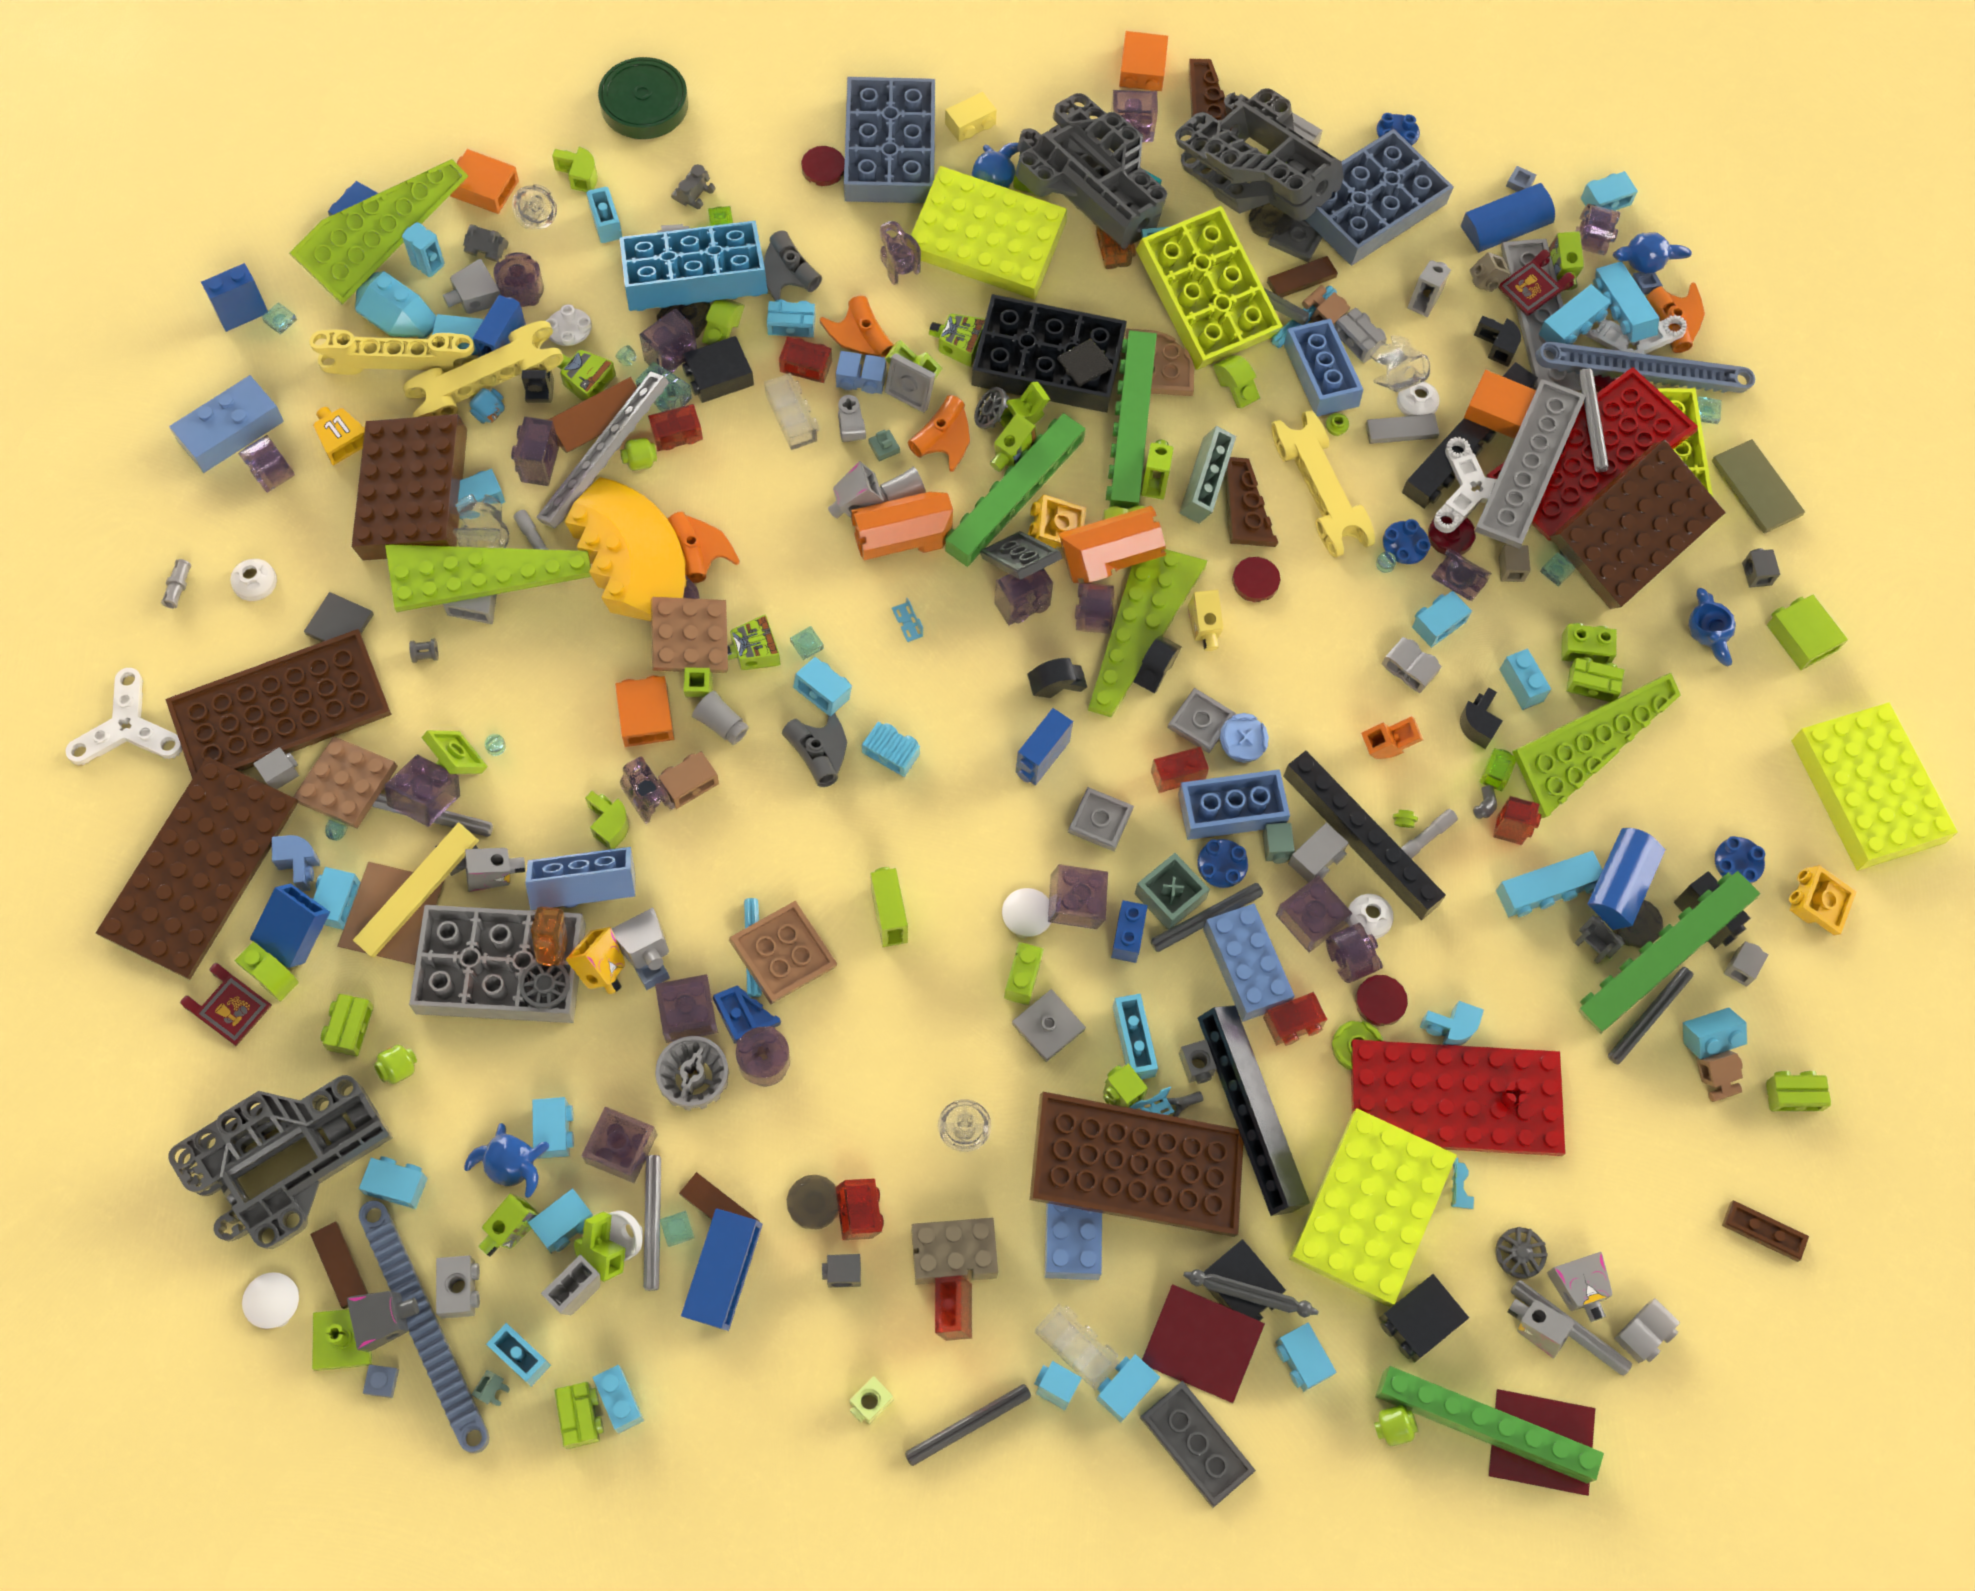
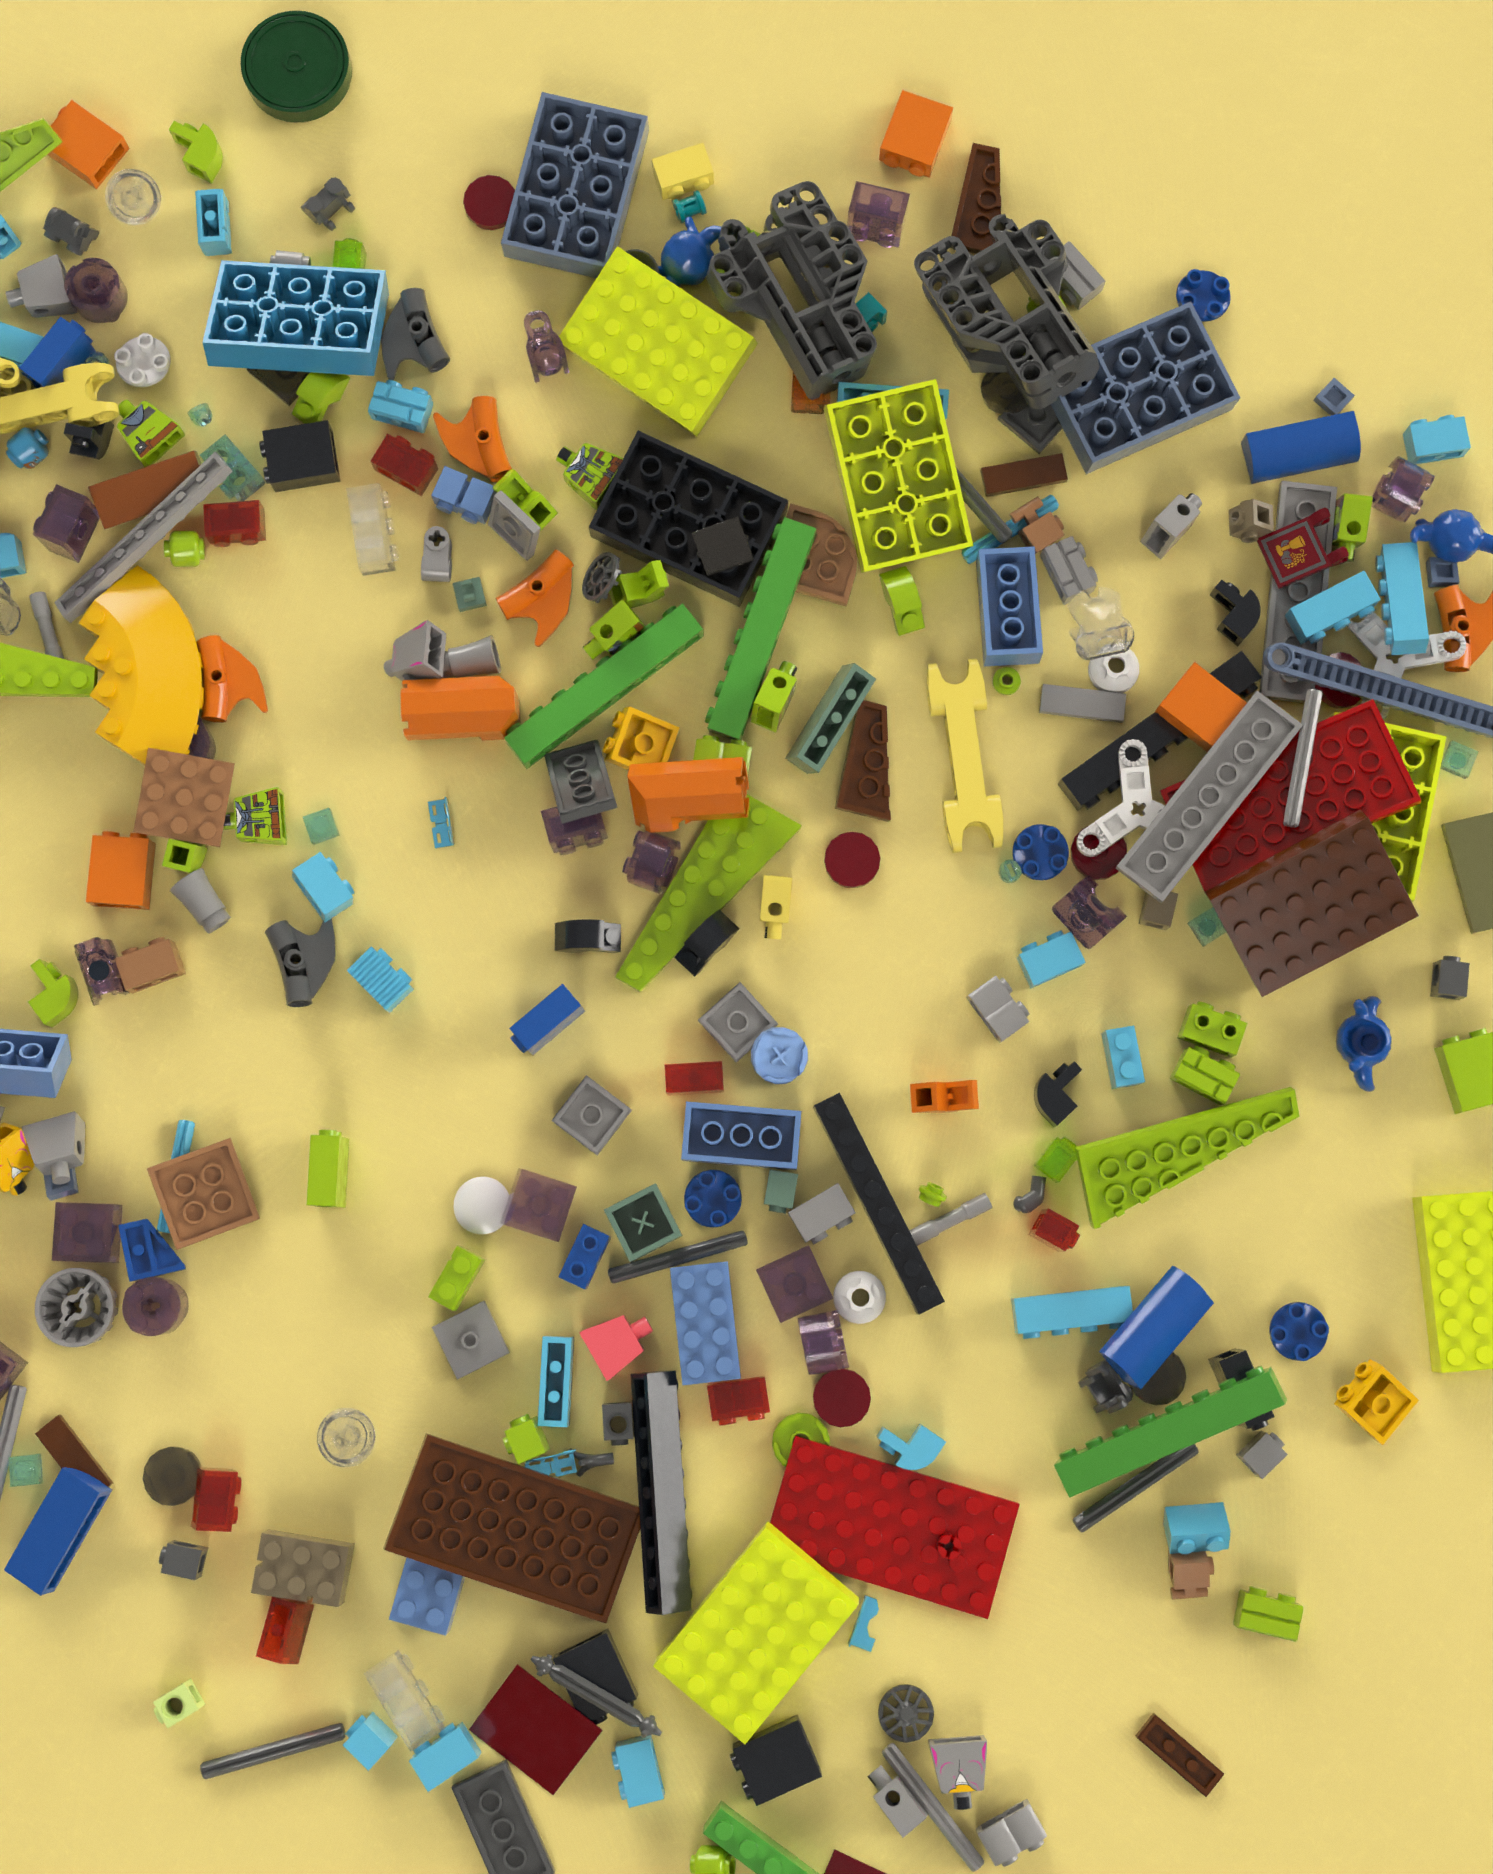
camera: 20 degrees right, 15 degrees up
(668, 340) = (247, 413): brick -> none
(986, 137) = (689, 206): none -> teal bush
(1175, 997) = (616, 1343): none -> coral torso

